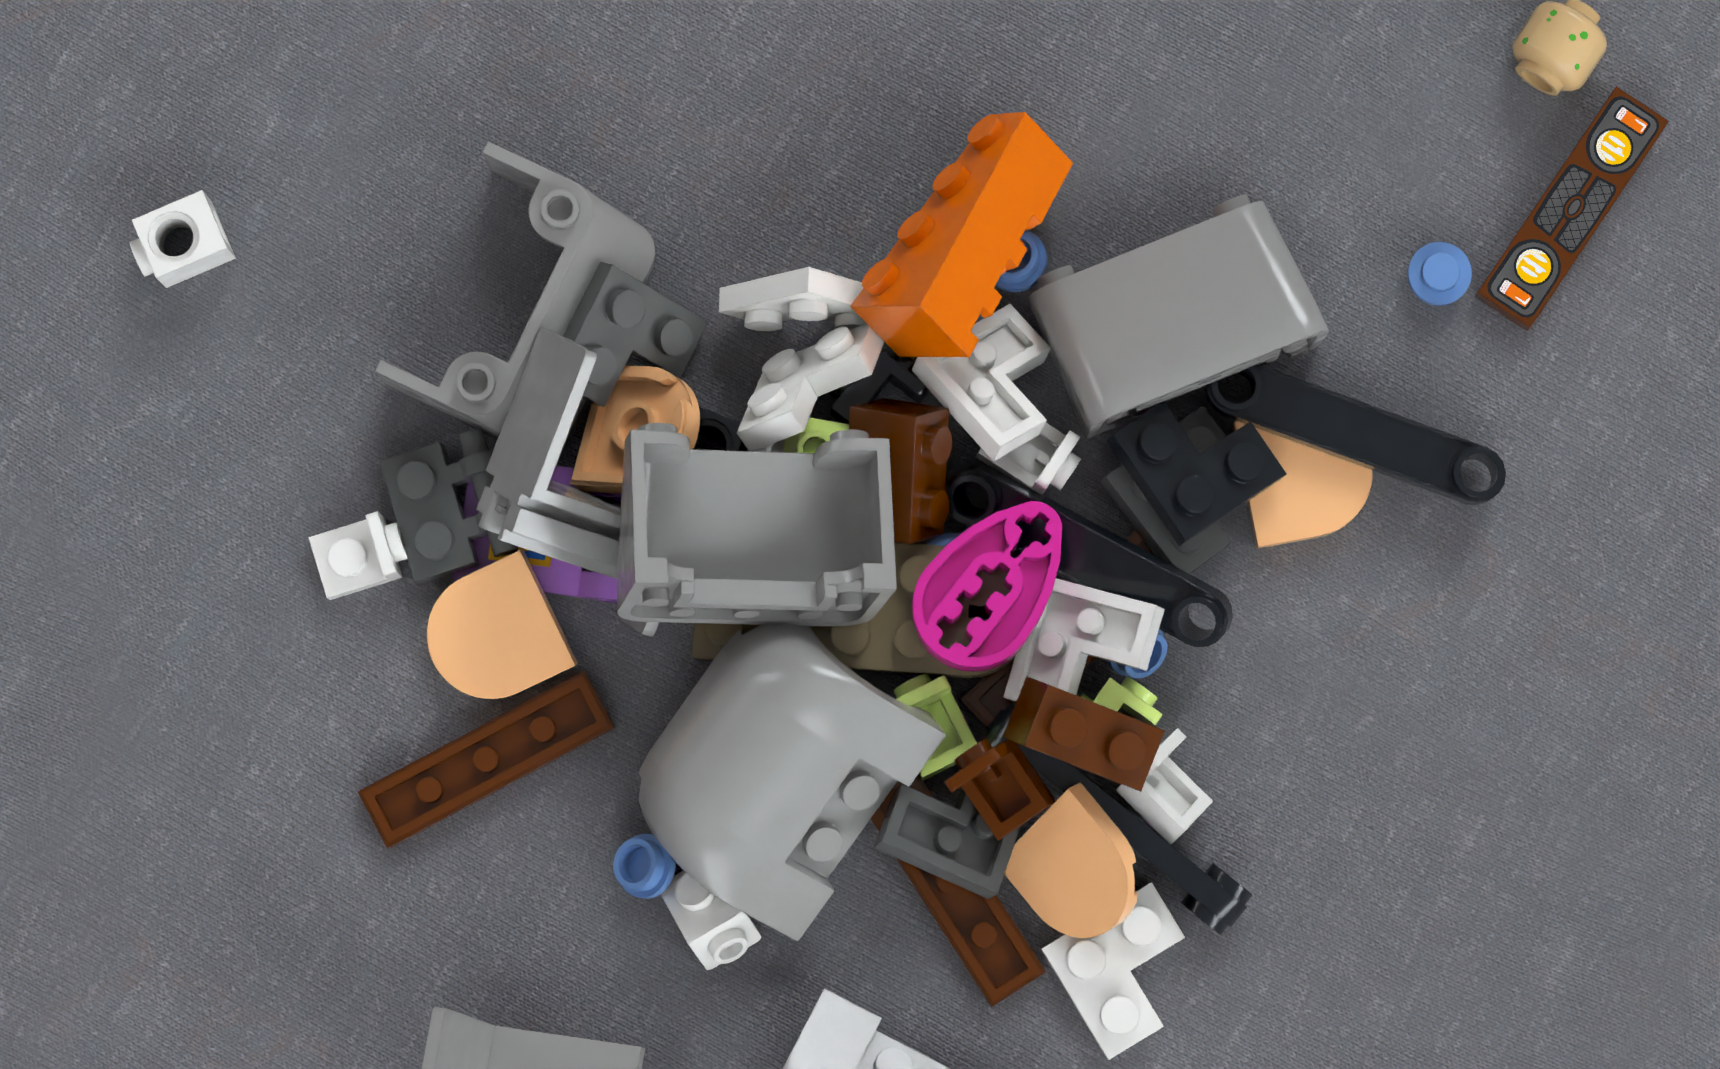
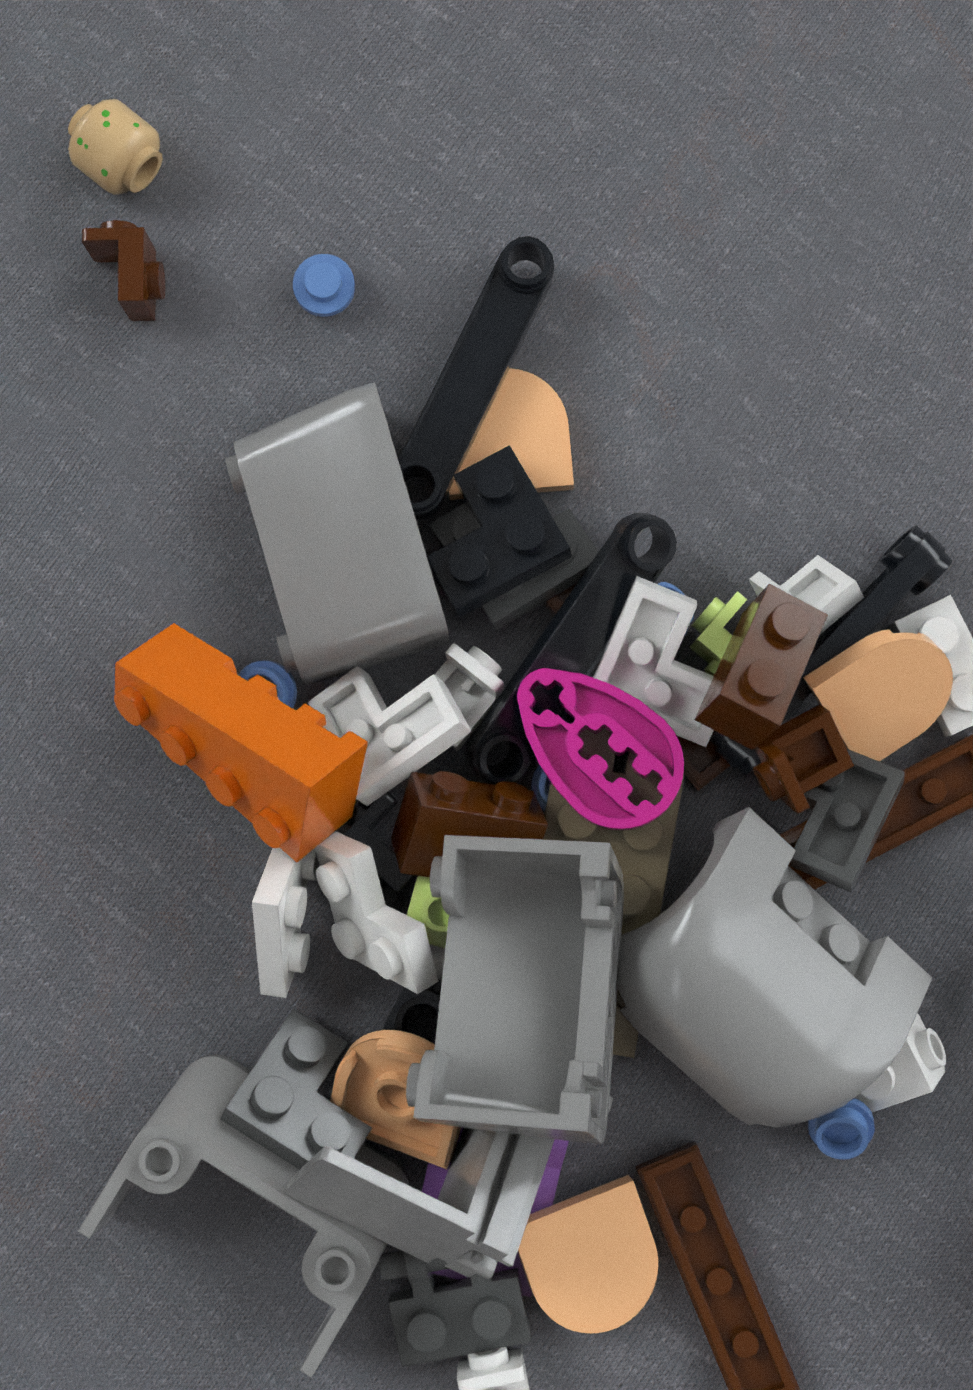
camera: 85 degrees left, 0 degrees up
(938, 700) = (705, 811): yellowish green bracket -> none
(1425, 88) = (139, 274): none -> reddish brown bracket
(1571, 208) = (274, 156): tile -> none

